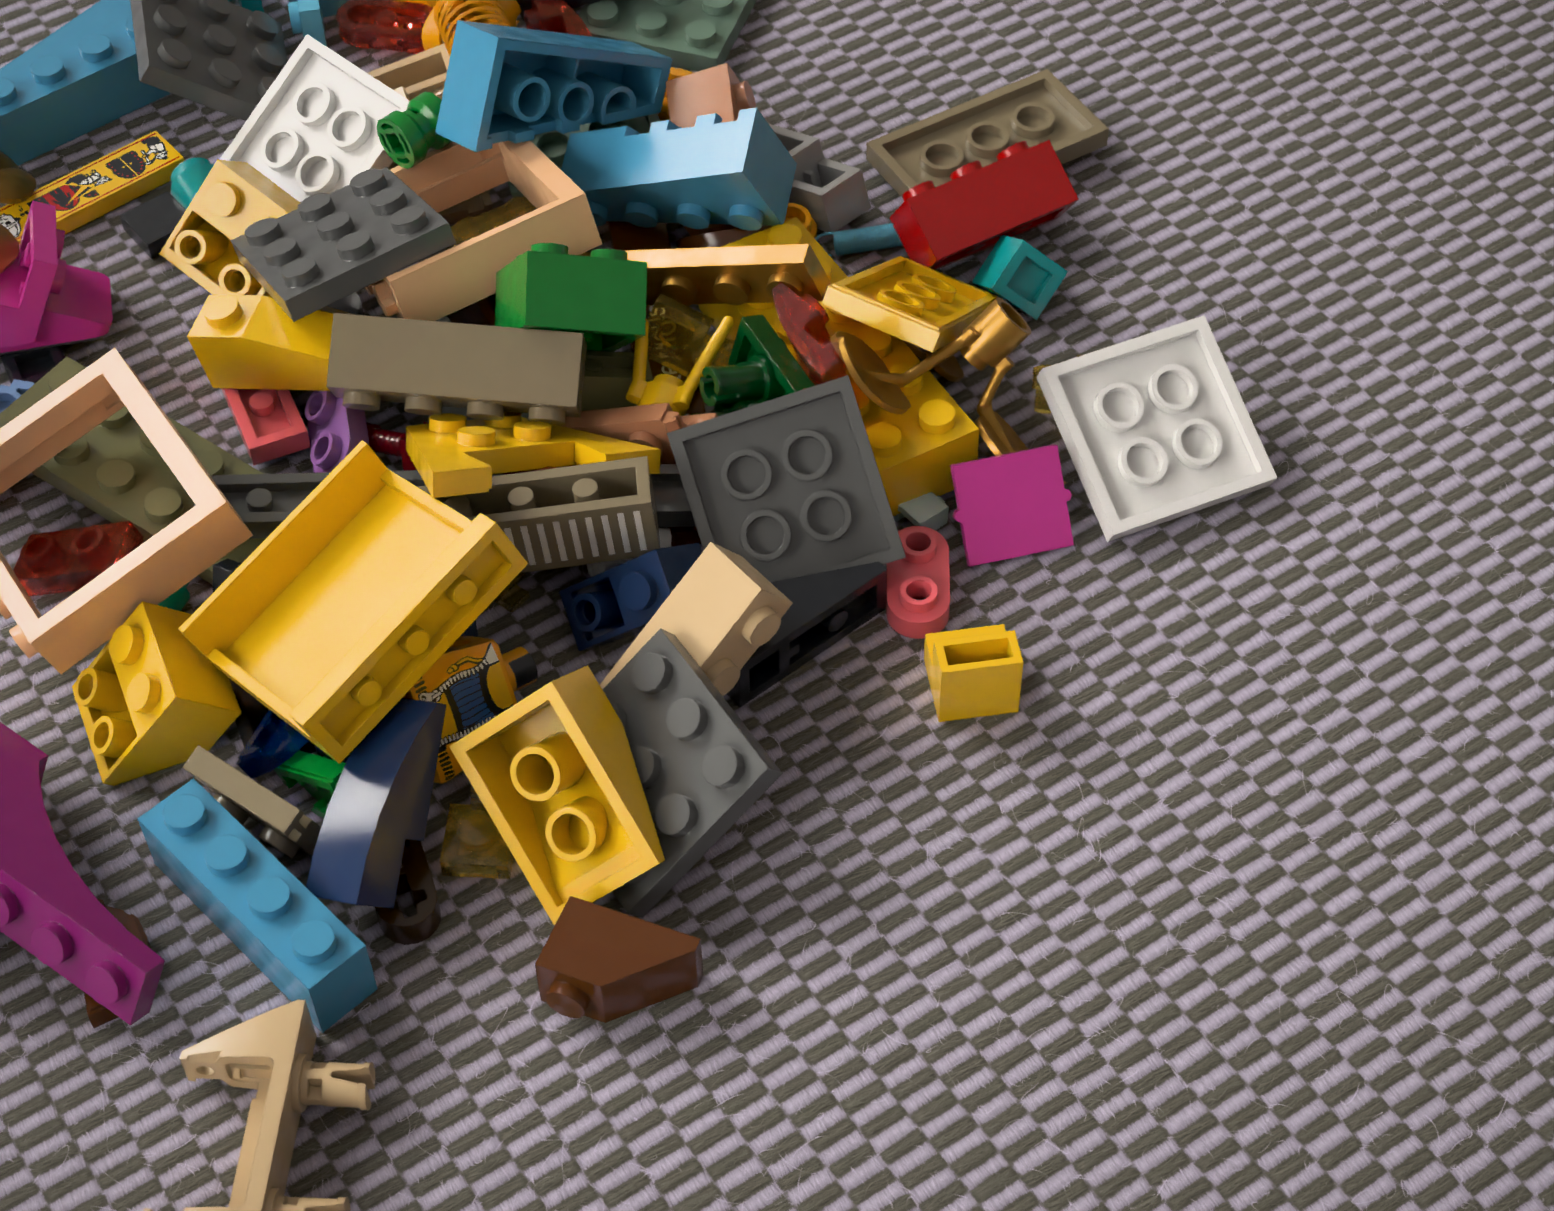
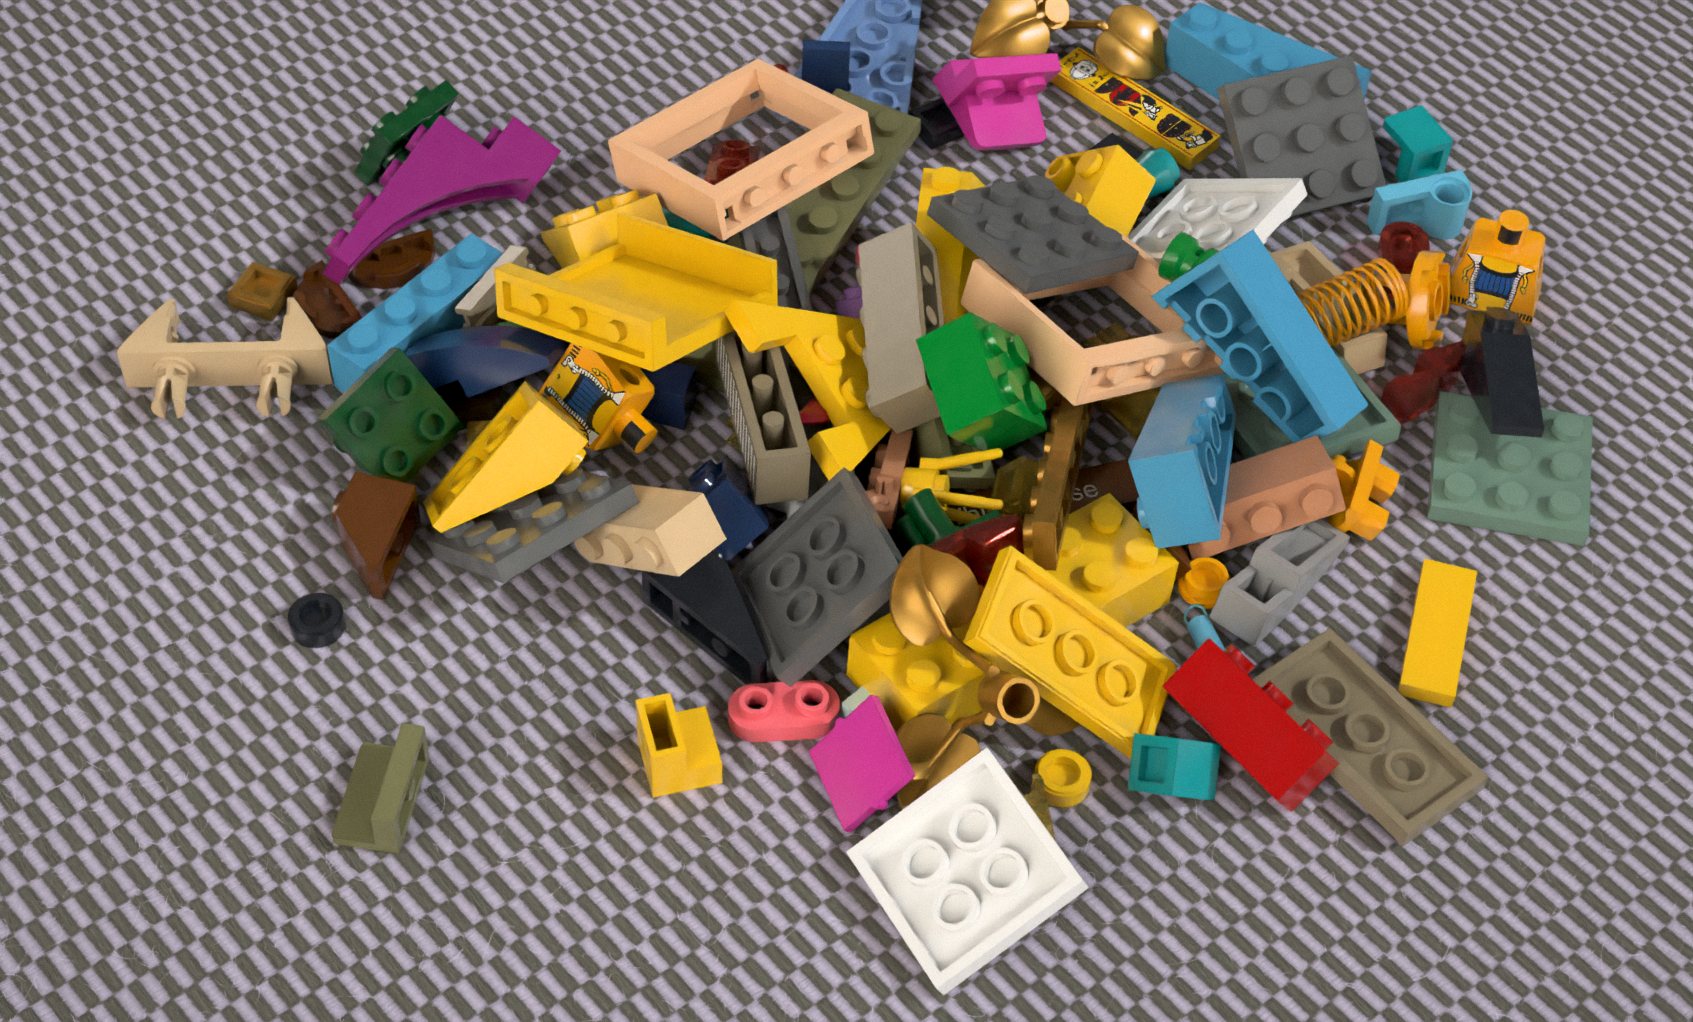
camera: 80 degrees right, 0 degrees up
(122, 1120) = (262, 291): none -> pearl gold tile
(153, 1045) = (325, 302): none -> reddish brown tile
(460, 923) = (391, 419): none -> dark green plate
(735, 1042) = (316, 620): none -> black tile
(864, 83) = (1437, 633): none -> yellow tile
(1012, 959) = (383, 792): none -> olive panel
(1019, 378) = (1065, 777): none -> yellow tile

